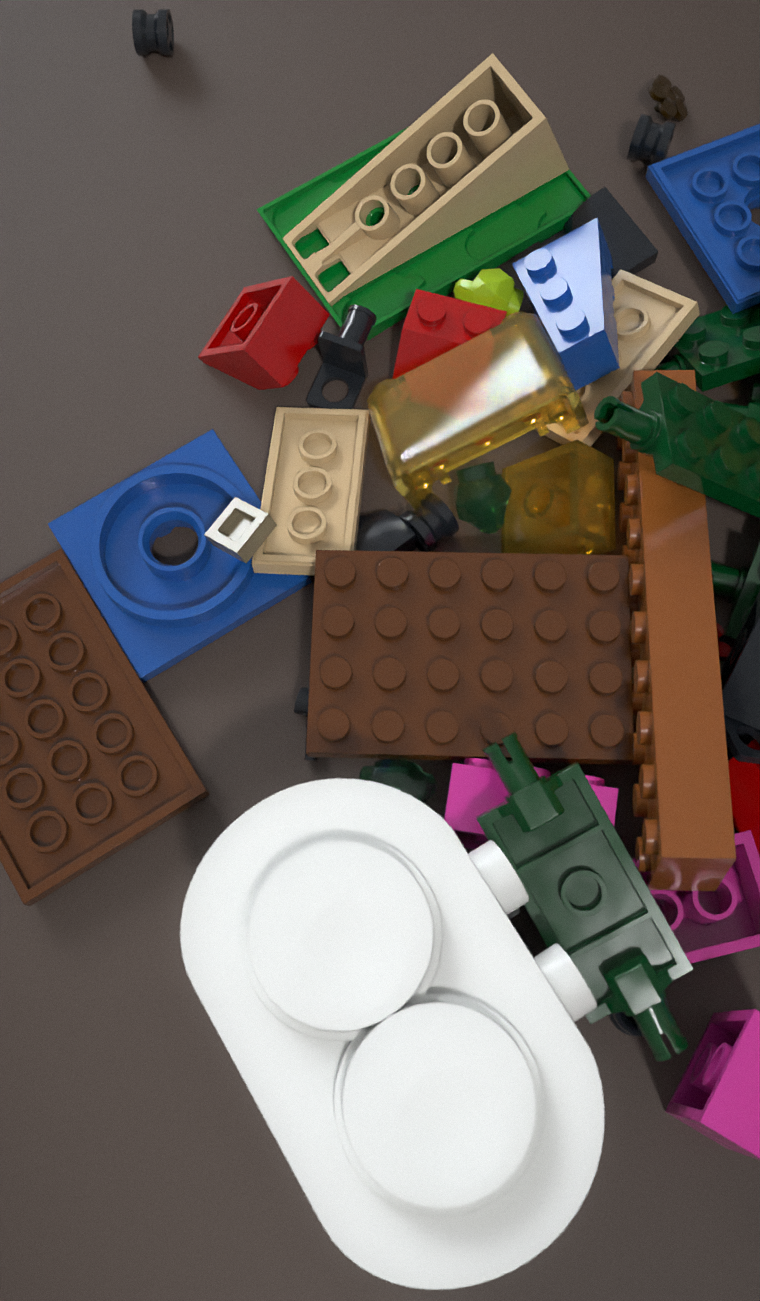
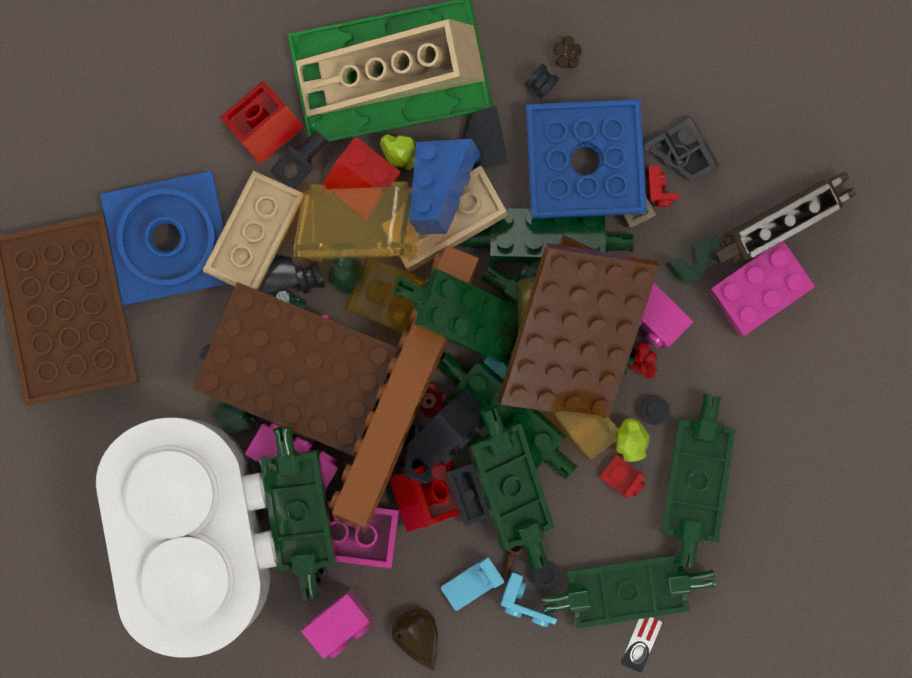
camera: 15 degrees right, 15 degrees up
(240, 530) = (202, 250): plate -> none

